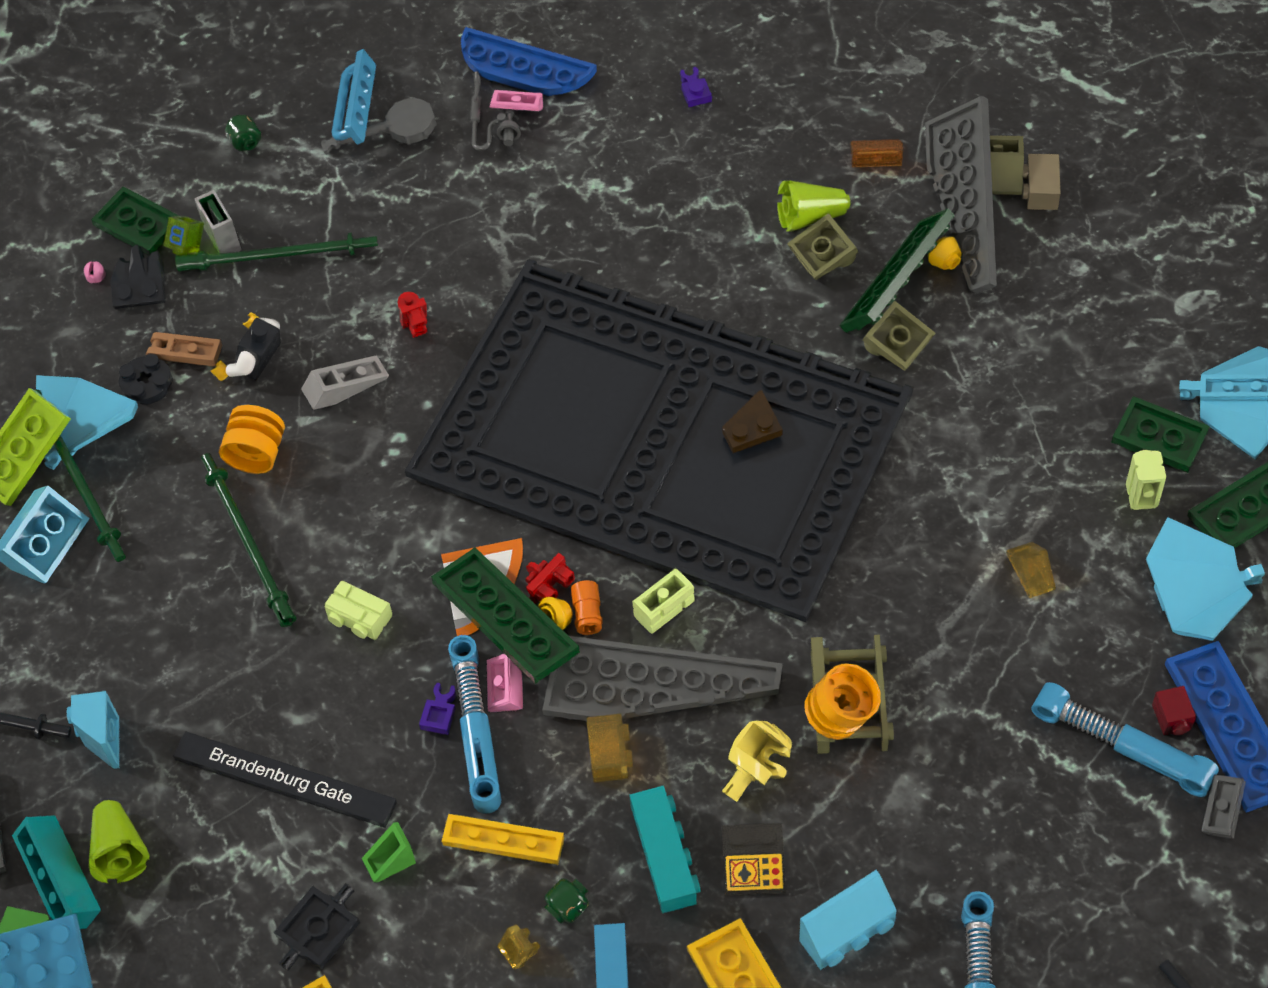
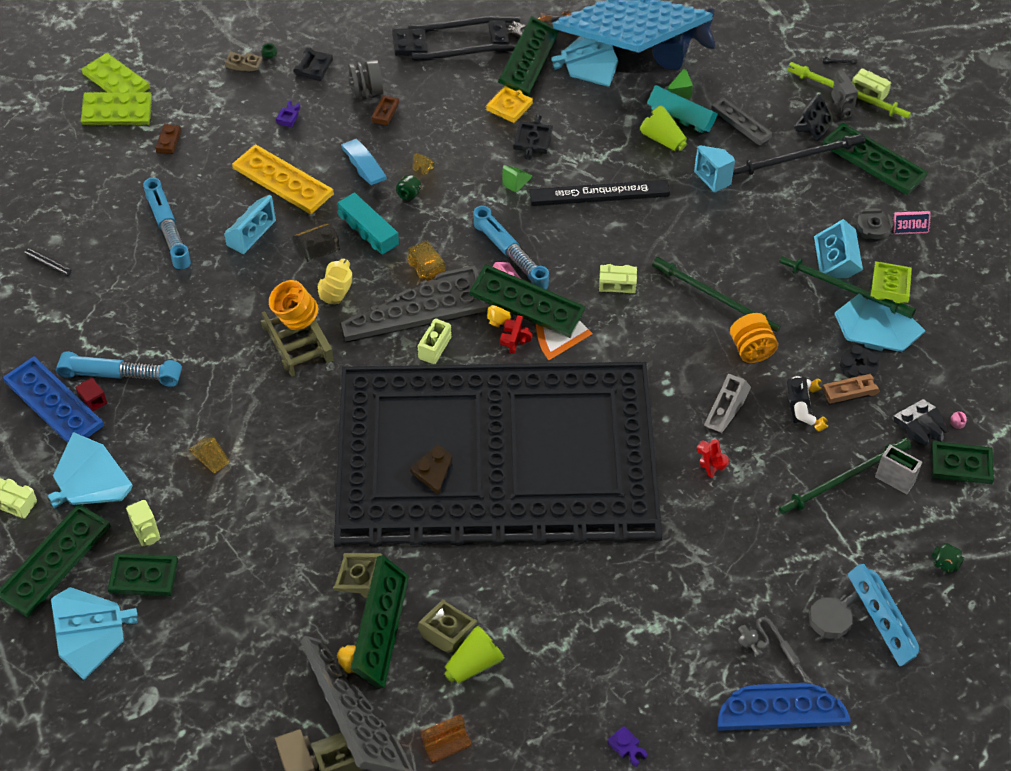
camera: 150 degrees right, 5 degrees down
(183, 235) = (919, 452): clear neon green brick -> none
(439, 713) = (535, 247): dark purple plate -> none
(503, 839) = (459, 203): yellow plate -> none
(517, 100) = (758, 663): bright pink slope -> none
(586, 605) = (481, 327): orange piece -> none
(1223, 806) = (49, 352): dark grey plate -> none

